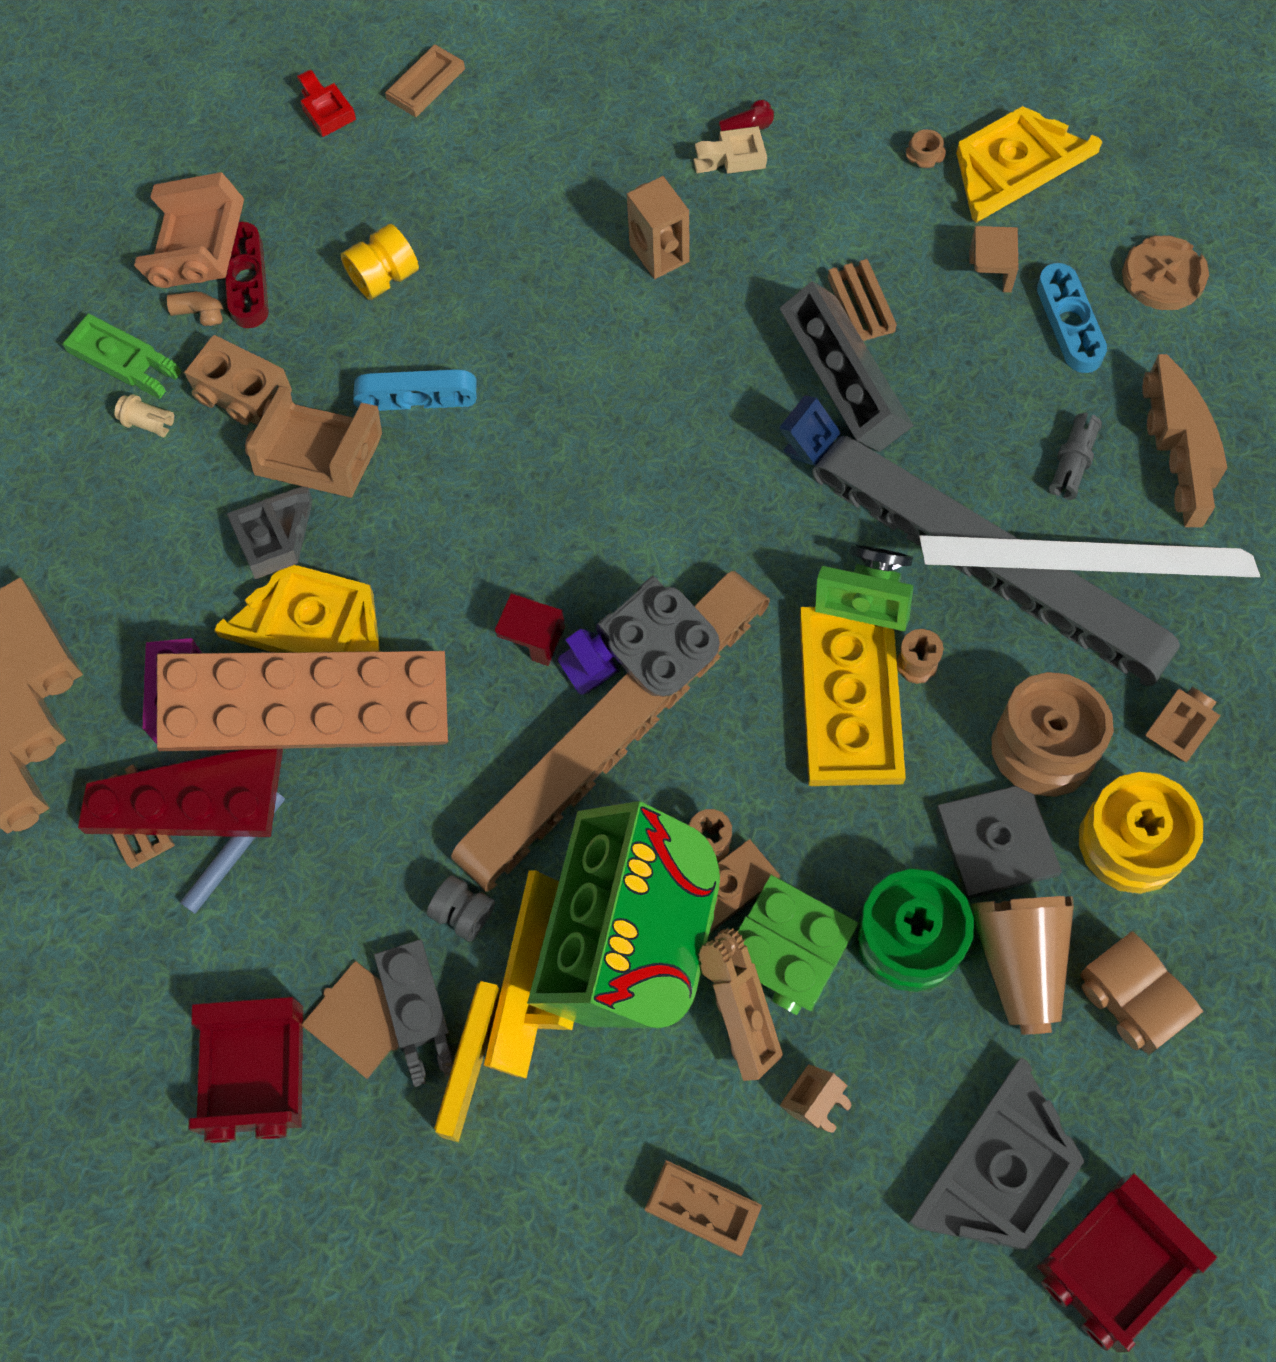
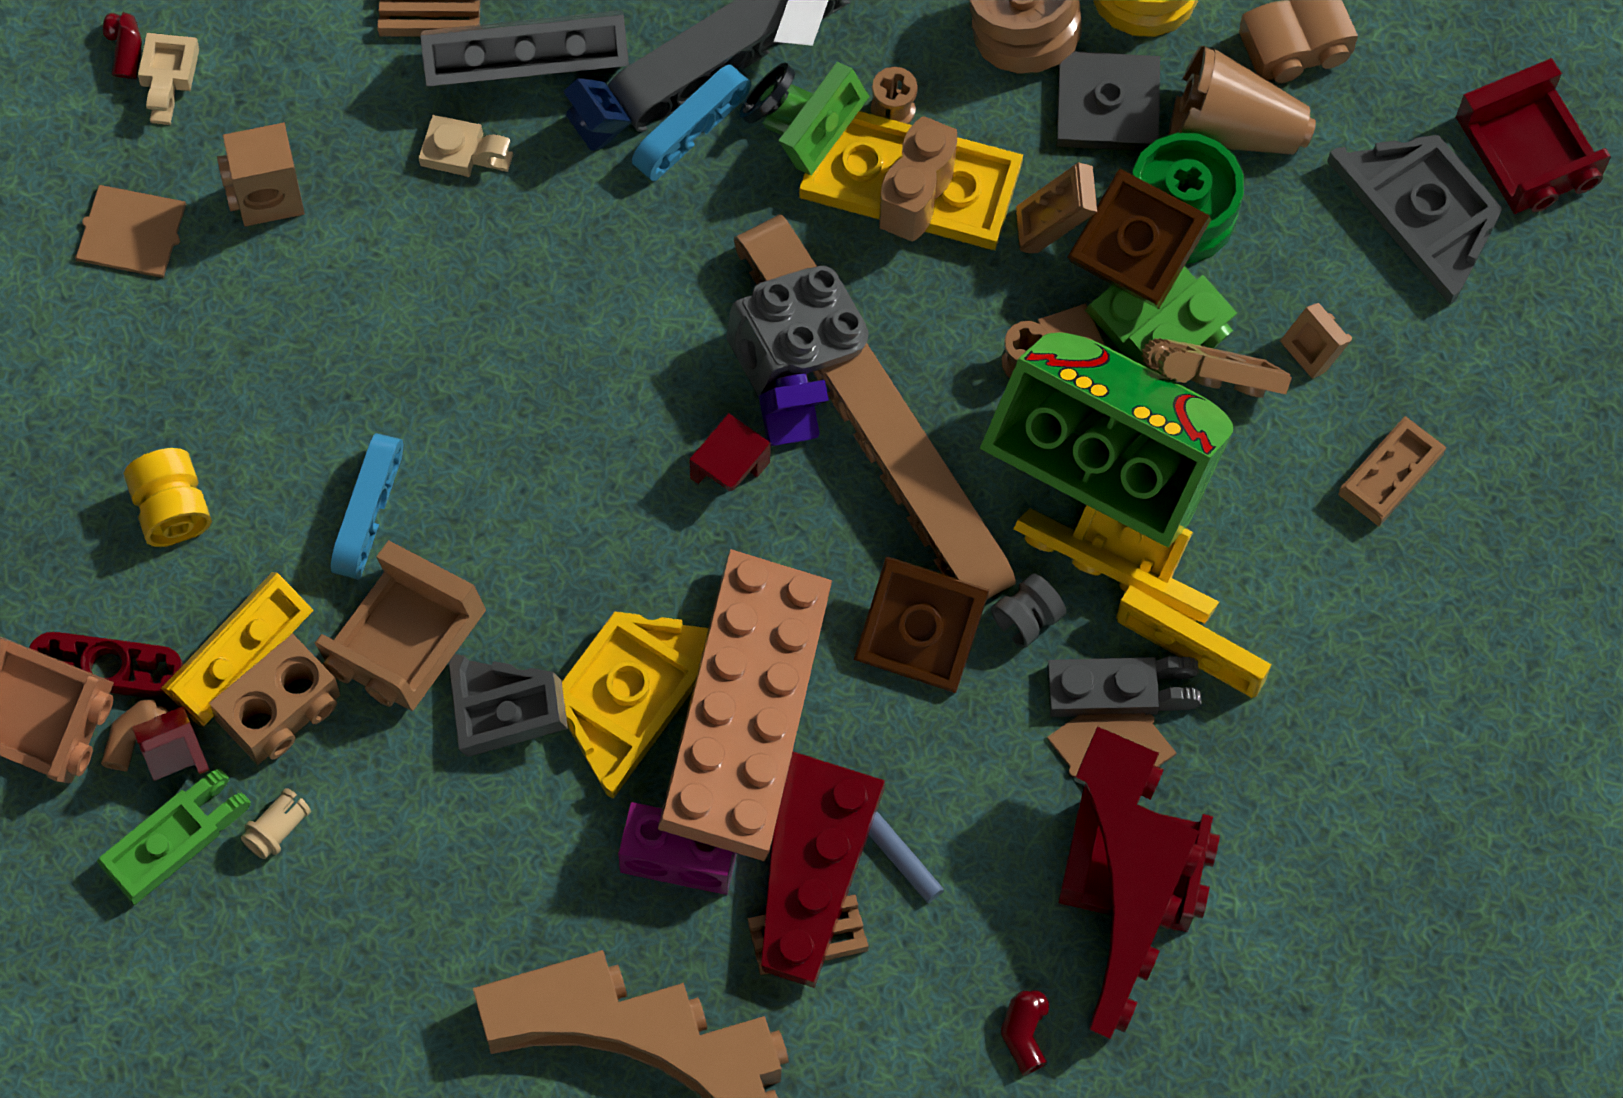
camera: 80 degrees left, 0 degrees up
(78, 1010) = (1019, 1027): none -> dark red arm
(187, 327) = (169, 744): none -> dark red panel
(225, 1062) = (1144, 866): none -> dark red arch
(291, 350) = (237, 645): none -> yellow tile
(421, 822) = (921, 624): none -> reddish brown tile
(598, 177) = (131, 231): none -> medium nougat piece
(748, 356) = (459, 144): none -> tan plate
(829, 505) = (696, 115): none -> dark azure beam
(841, 894) = (1139, 238): none -> reddish brown tile
(844, 690) = (918, 178): none -> medium nougat brick
(855, 817) = (1056, 208): none -> medium nougat plate

